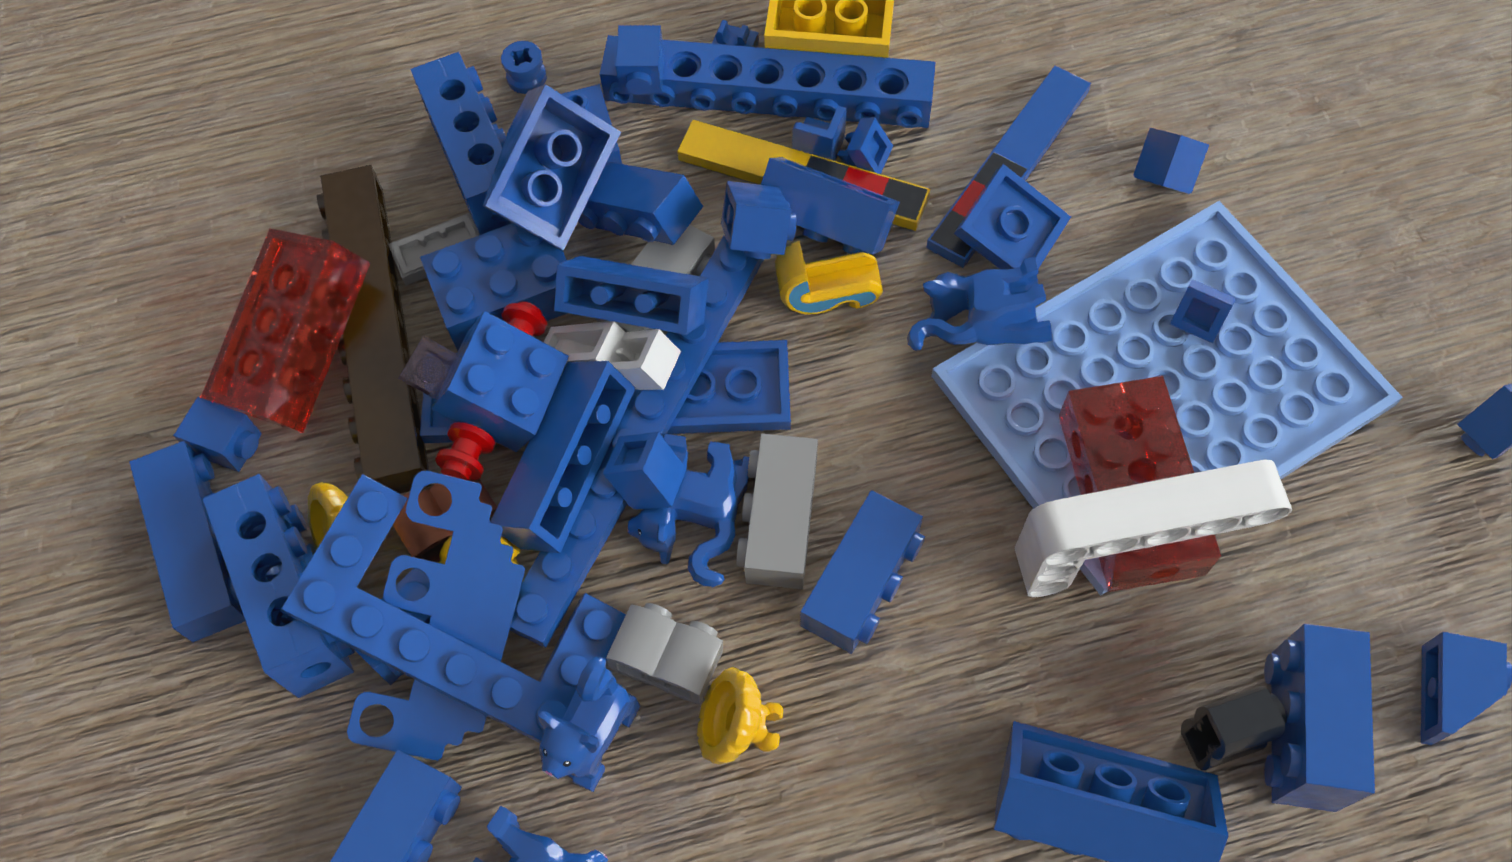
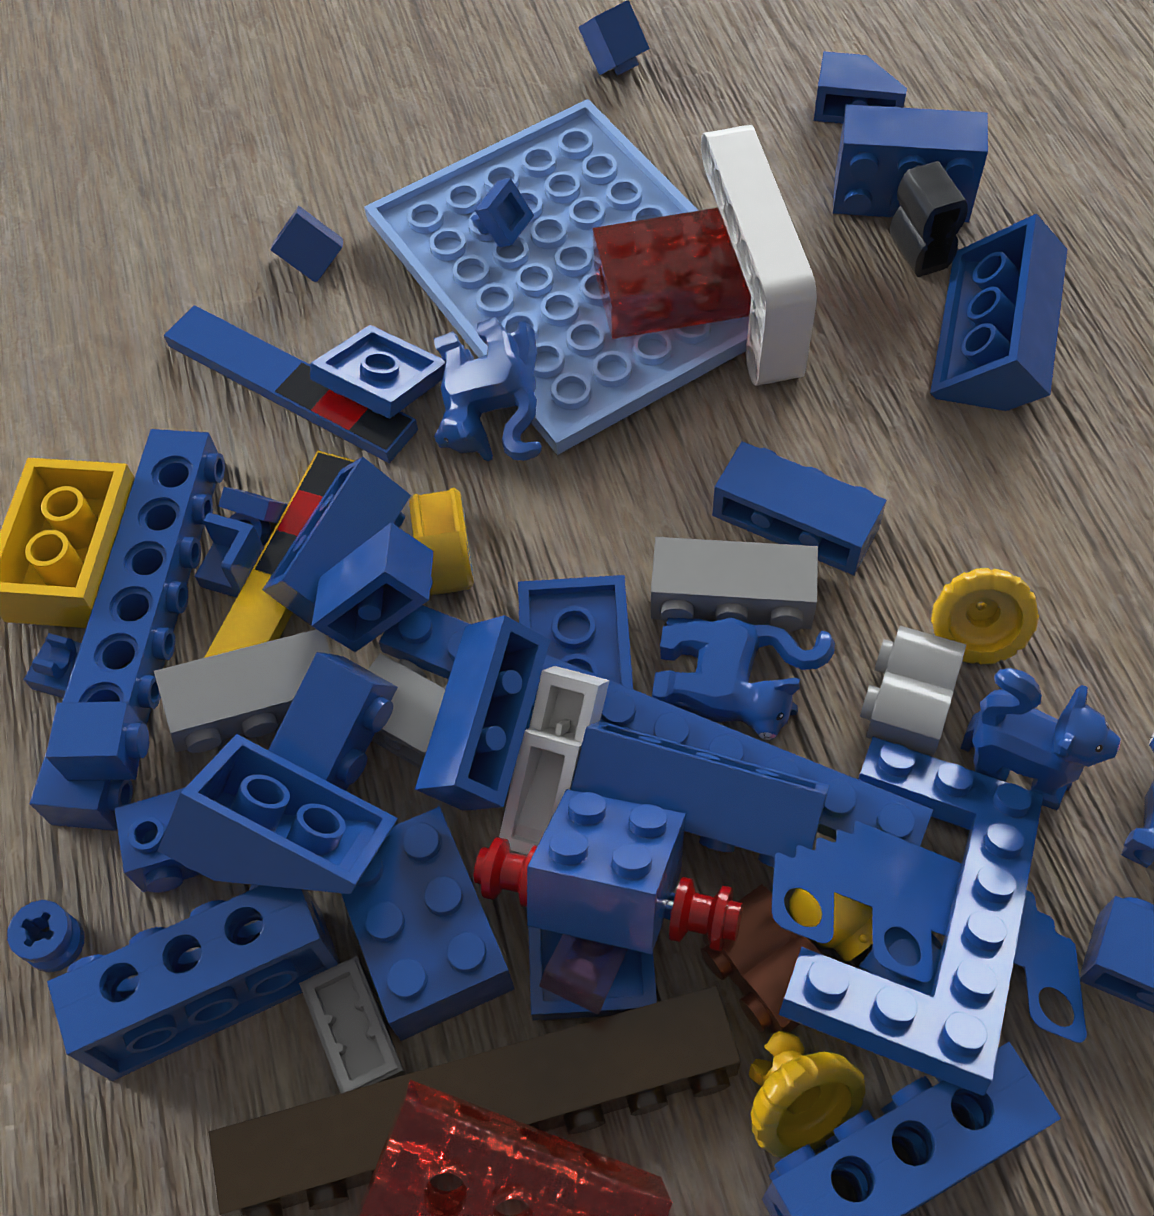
camera: 90 degrees left, 5 degrees down
(645, 471) = (714, 699): blue panel -> none
(688, 148) = (235, 690): none -> light grey brick

